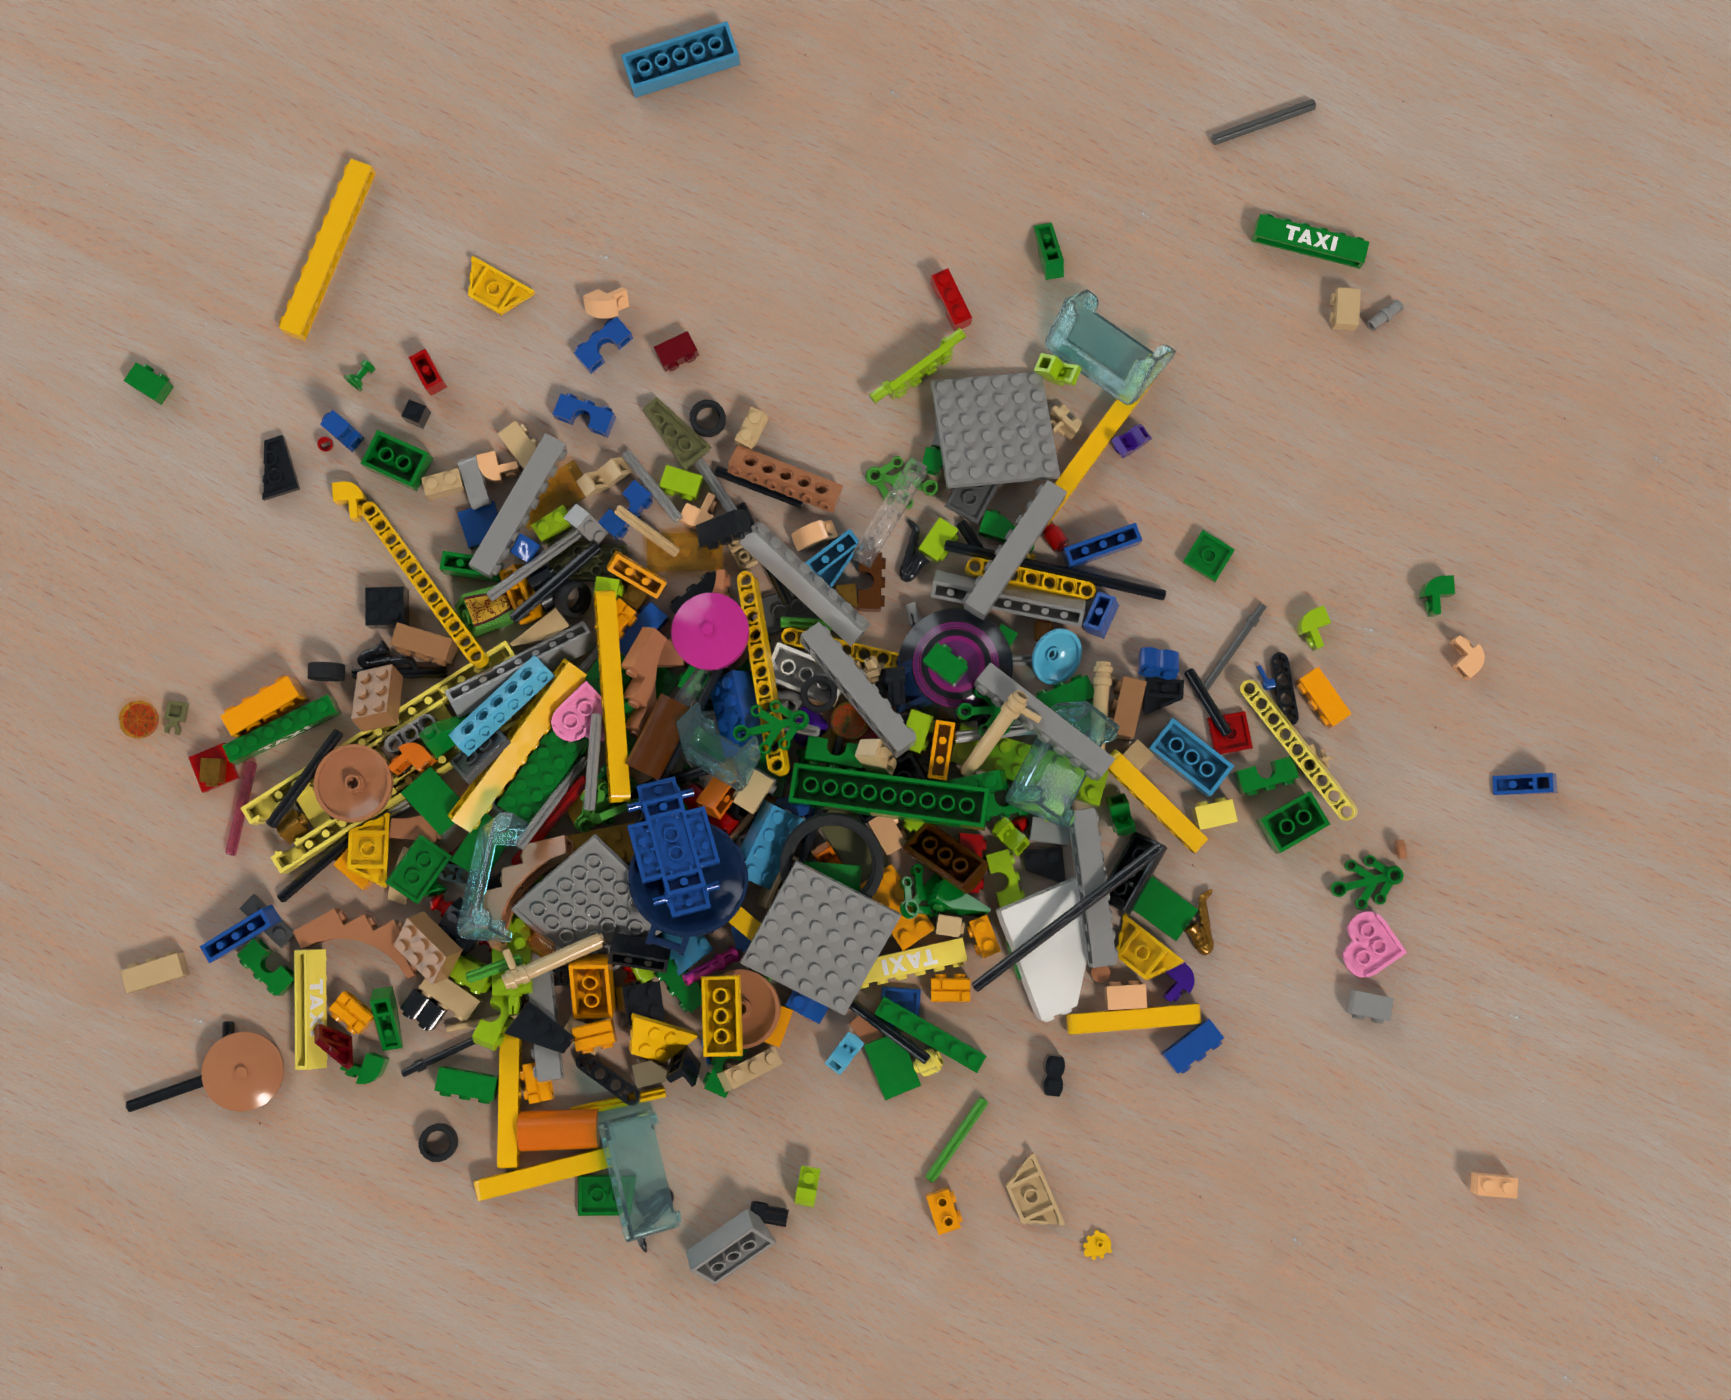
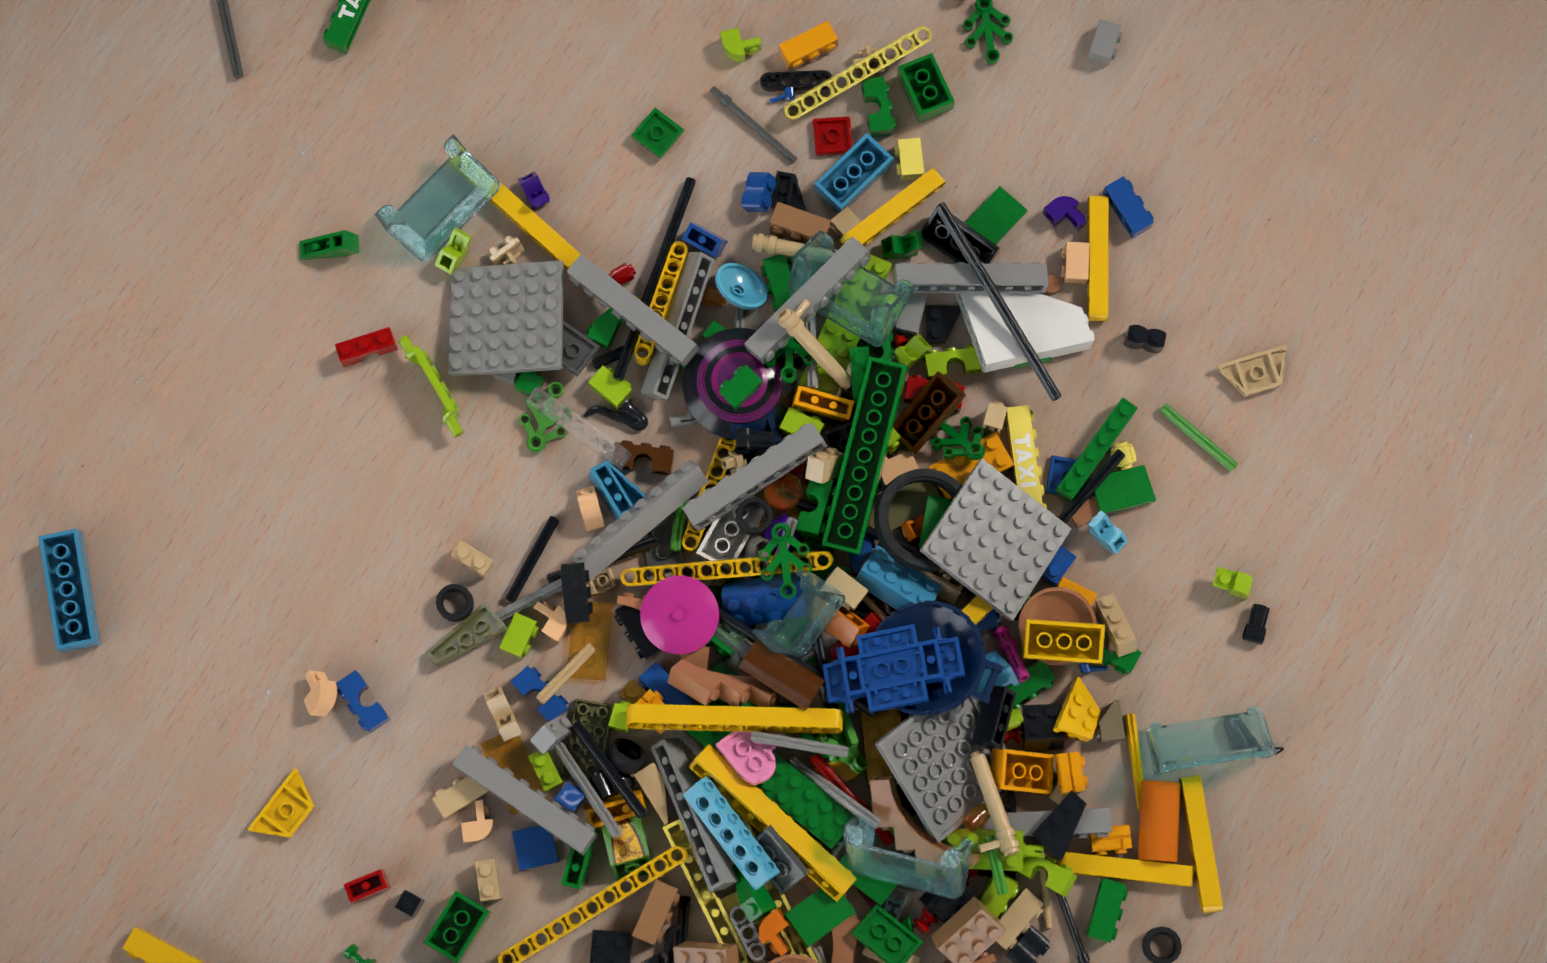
camera: 85 degrees left, 5 degrees down
(474, 483) = (490, 848): light grey beam -> none
(569, 408) = (440, 711): blue arch -> none
(596, 1196) = (1226, 786): green tile -> none
(607, 1080) = (1116, 770): black beam -> none
(636, 574) = (609, 688): light orange brick -> none
(652, 486) = (519, 664): light grey axle -> none
(676, 351) = (381, 627): dark red brick -> none
(684, 1065) = (1107, 690): black panel -> none
(730, 1247) = (1285, 662): light grey slope -> none
(785, 478) = (528, 530): nougat brick -> none
(848, 593) = (653, 479): pearl gold brick -> none
(943, 1210) = (1264, 456): light orange brick -> none
(950, 900) = (969, 413): green slope -> none
(950, 989) = (1054, 426): light orange brick -> none
(984, 936) = (1007, 387): light orange brick -> none
(1097, 1245) = (1307, 318): yellow piece -> none
(1102, 546) = (636, 230): blue brick -> none
(1143, 951) = (1035, 240): yellow wing -> none
(1202, 936) = (1025, 185): pearl gold piece -> none
(1208, 702) = (801, 151): black axle -> none
(1371, 945) = (1047, 33): bright pink plate -> none

